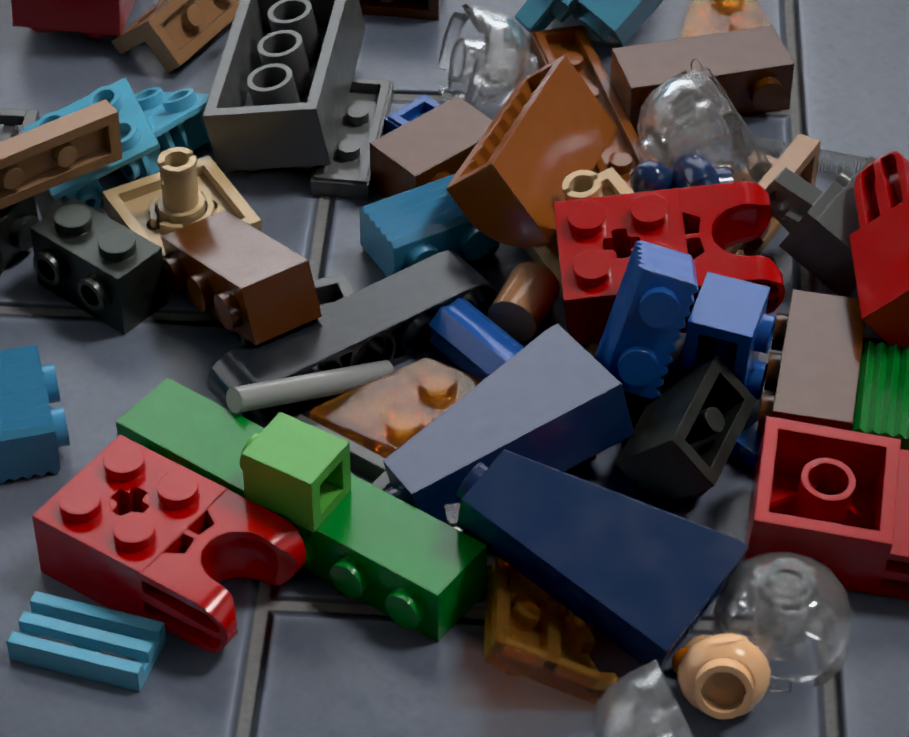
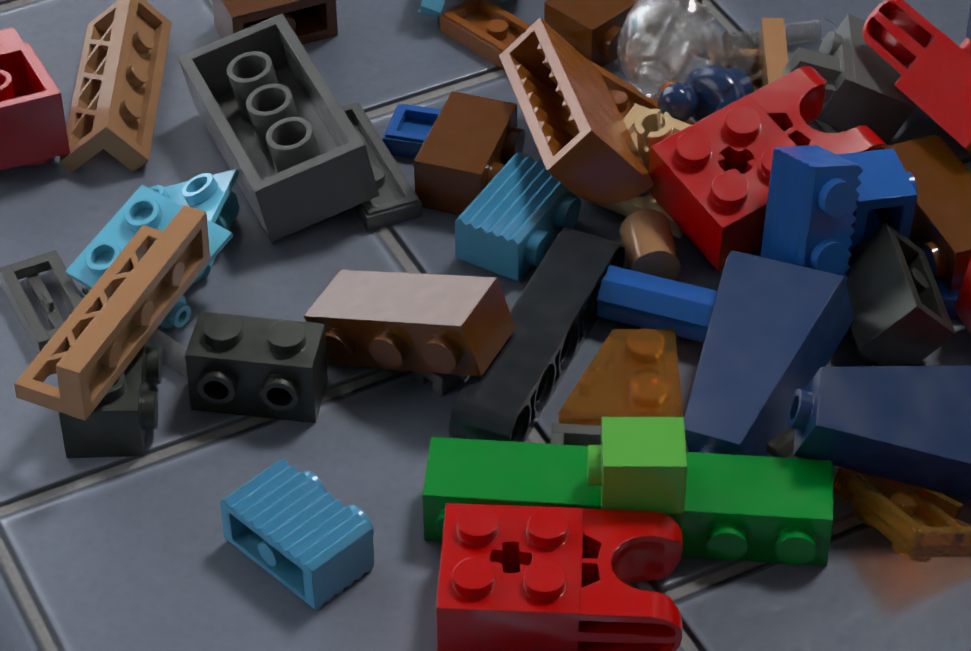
camera: 30 degrees left, 0 degrees up
(176, 197) = (284, 272): tan plate -> none
(304, 387) = (548, 395): light grey bar -> none
(484, 58) = (434, 52): clear cylinder -> none

